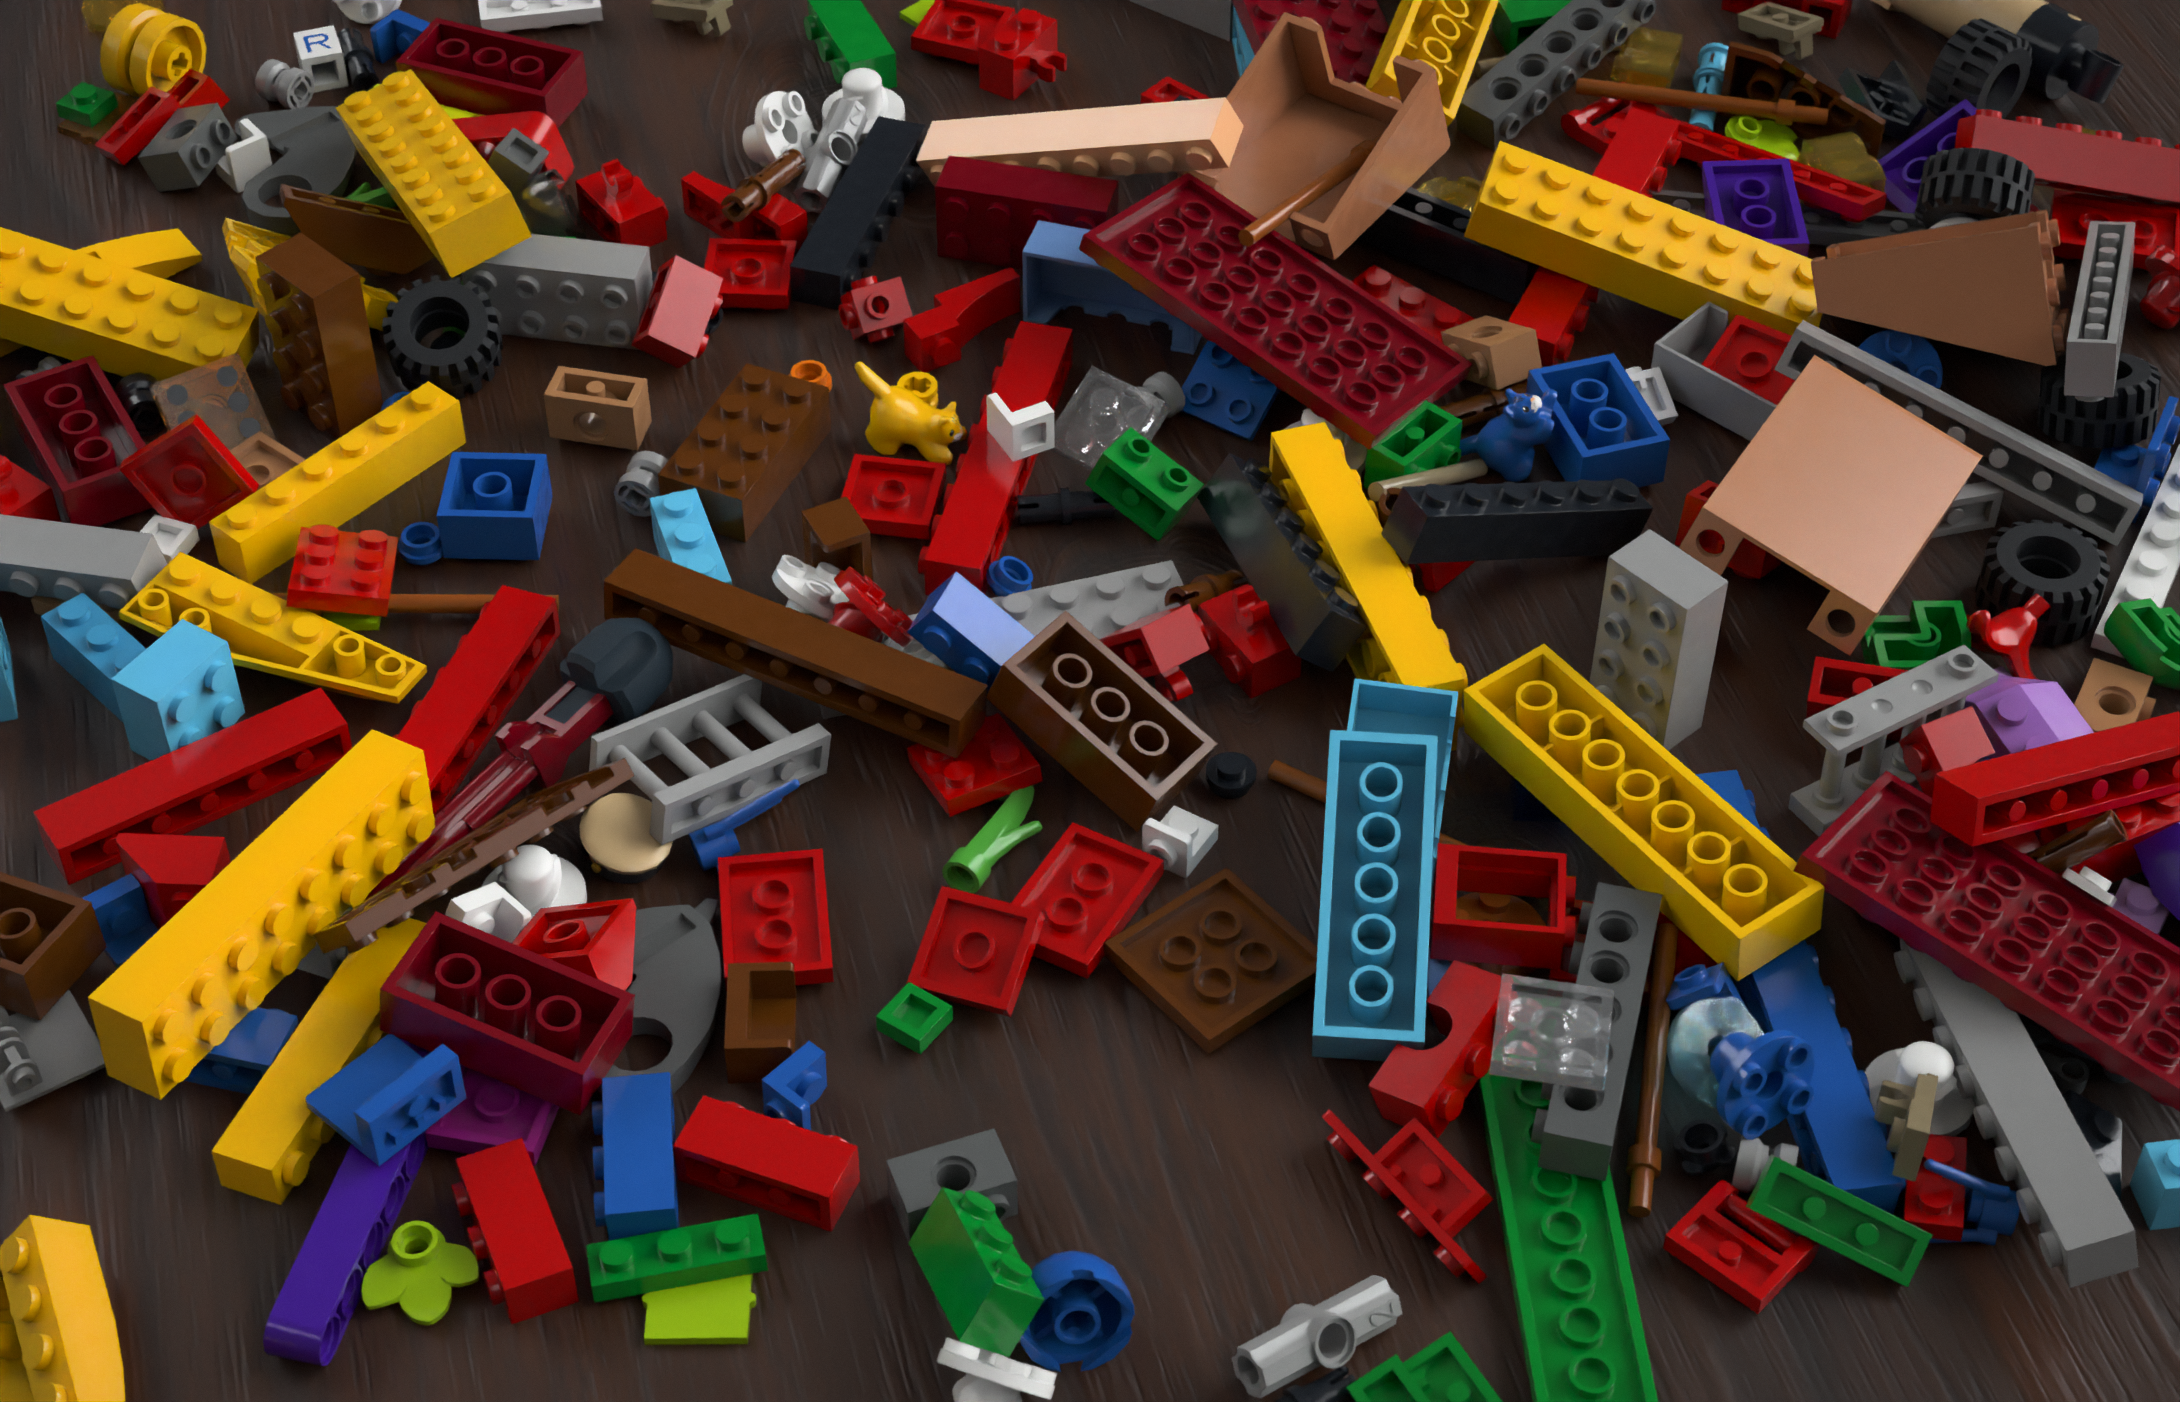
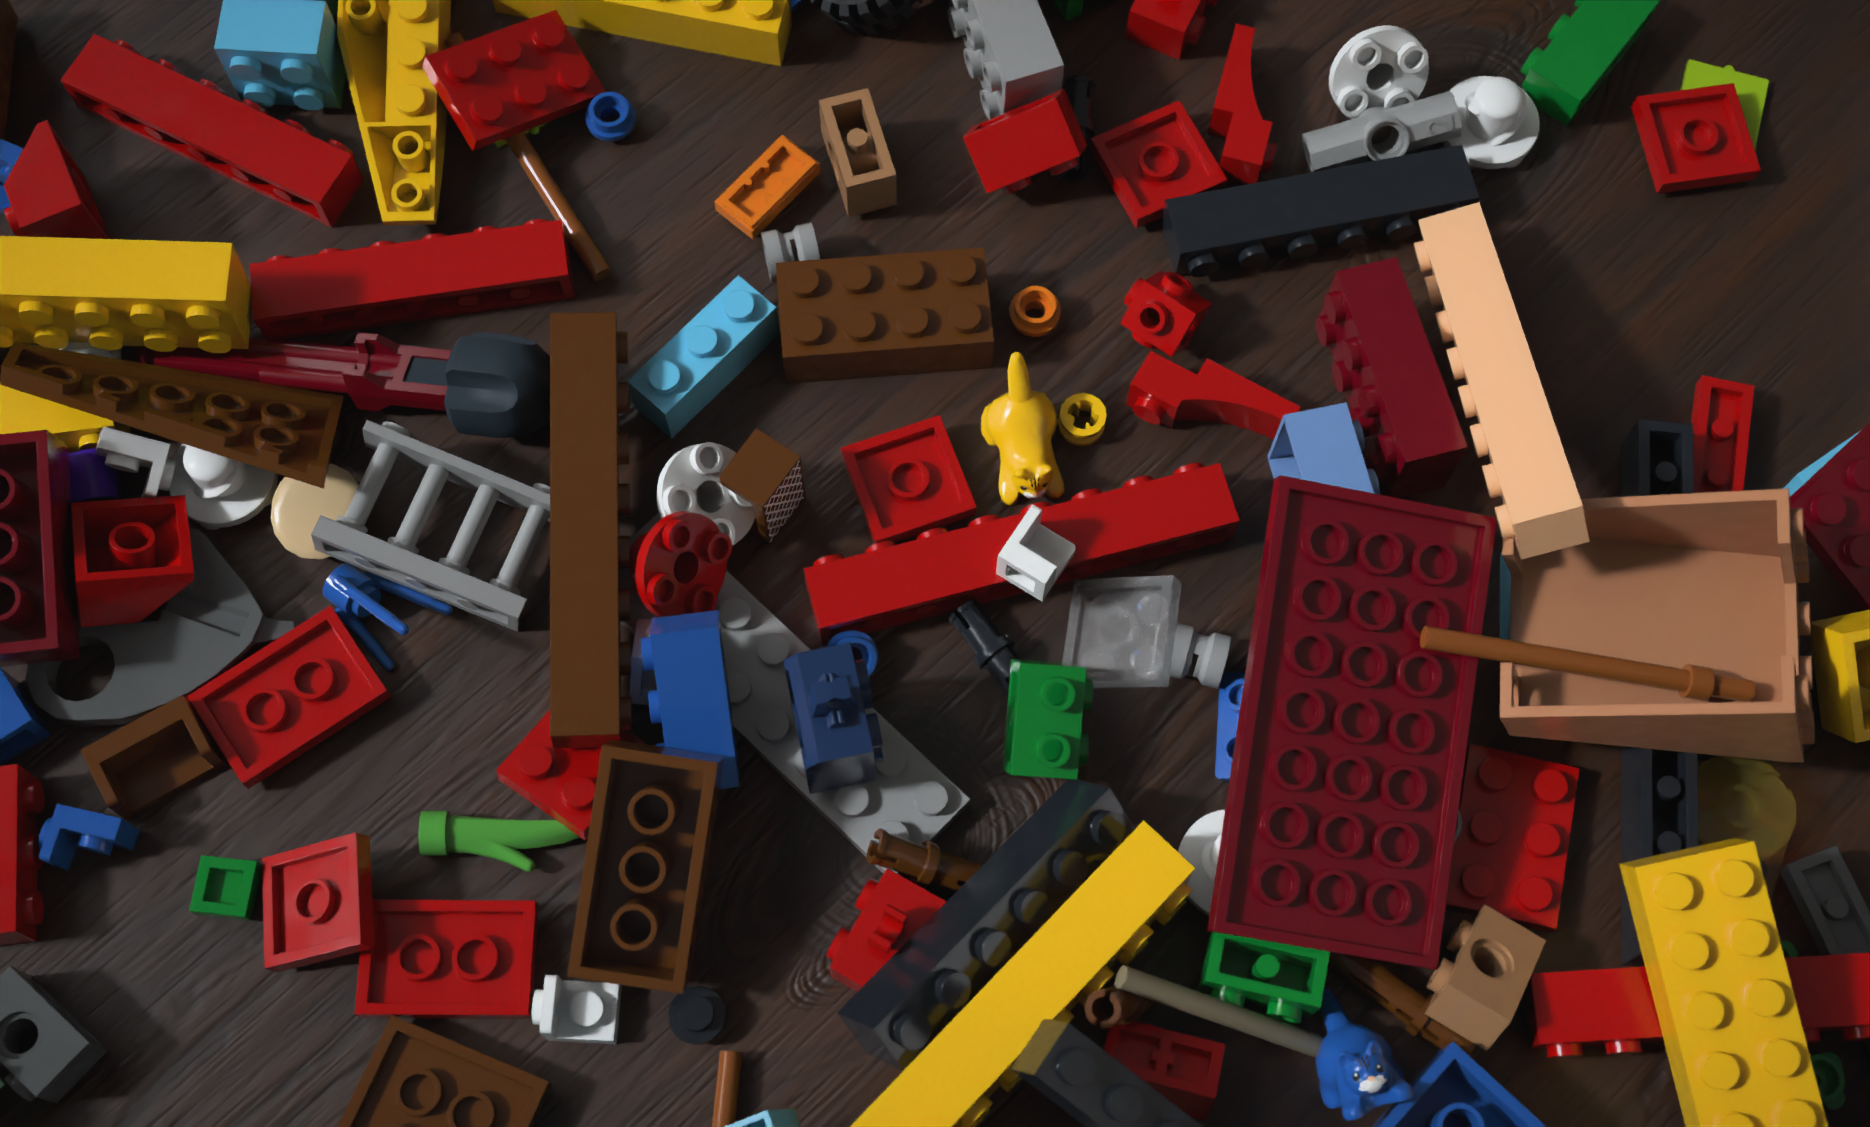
camera: 60 degrees right, 25 degrees up
(495, 506) = (672, 147): blue brick -> none
(574, 479) = (767, 187): none -> orange plate
(757, 190) = (1250, 105): reddish brown pin -> none
(1020, 54) = (1684, 219): red brick -> none
(1065, 565) = (830, 717): none -> dark blue hinge
(1159, 645) = (800, 858): red brick -> none

